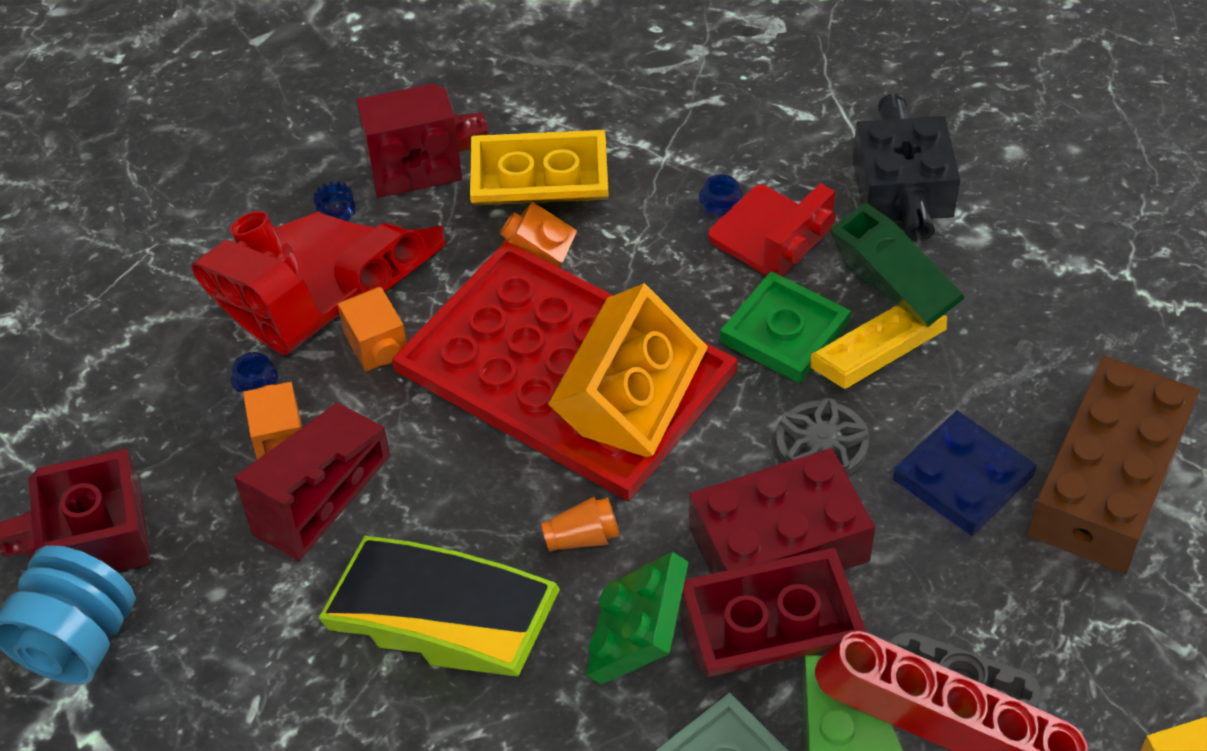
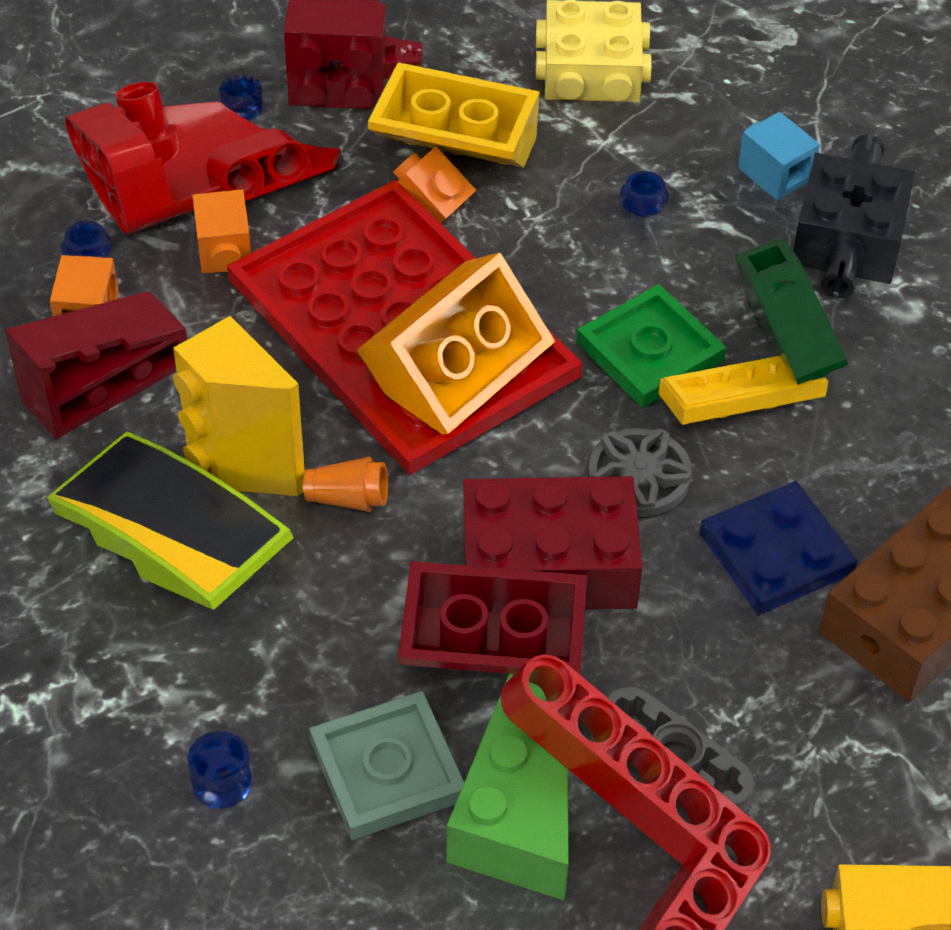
camera: 15 degrees right, 0 degrees up
(475, 489) = (239, 411): none -> yellow slope
(625, 81) = (593, 51): none -> light yellow brick
(637, 619) = (356, 588): green plate -> none
(772, 229) = (684, 242): red bracket -> none
(819, 131) = (777, 155): none -> dark azure brick

